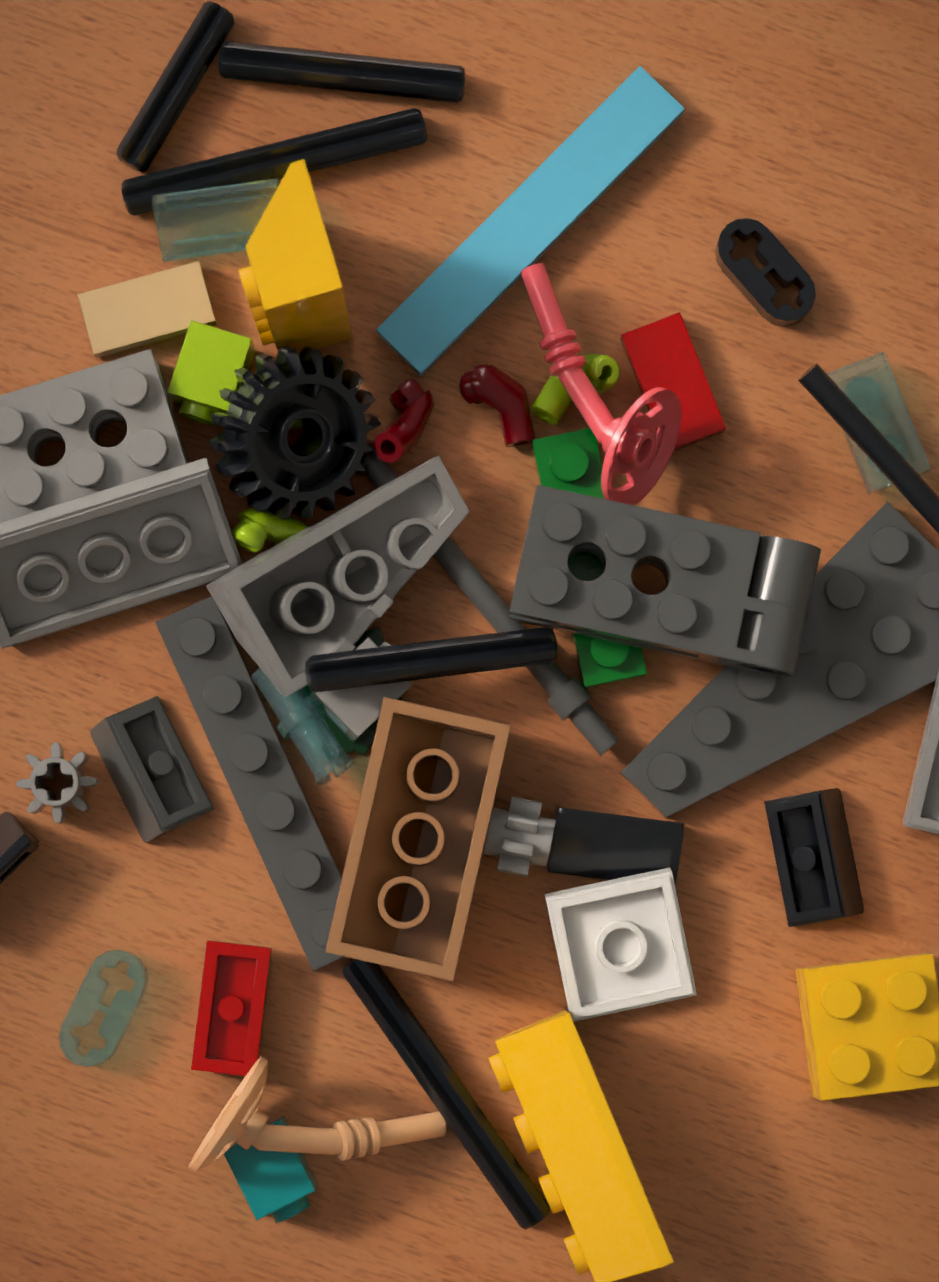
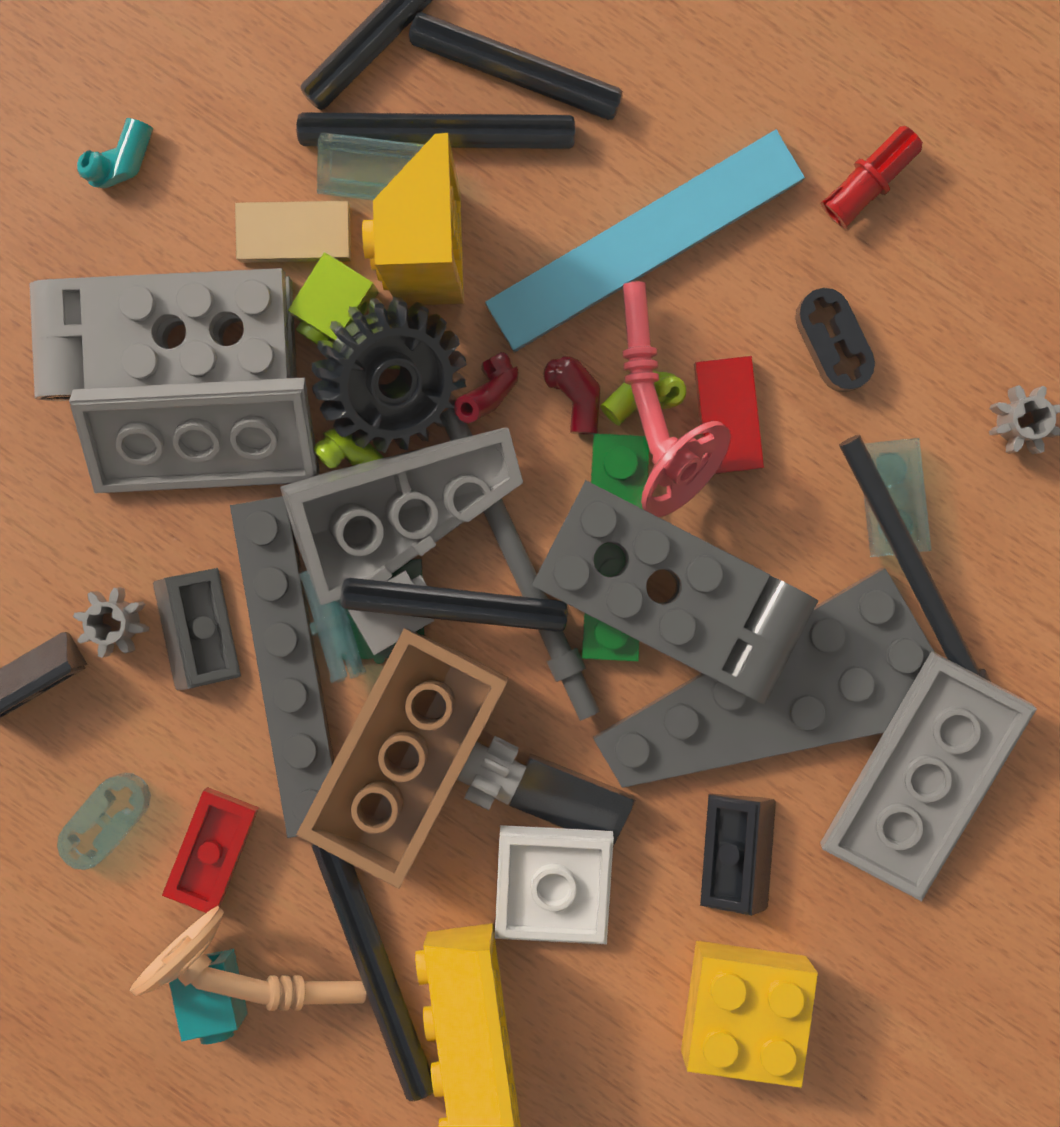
camera: 20 degrees right, 5 degrees up
(756, 89) = (872, 176): none -> red axle

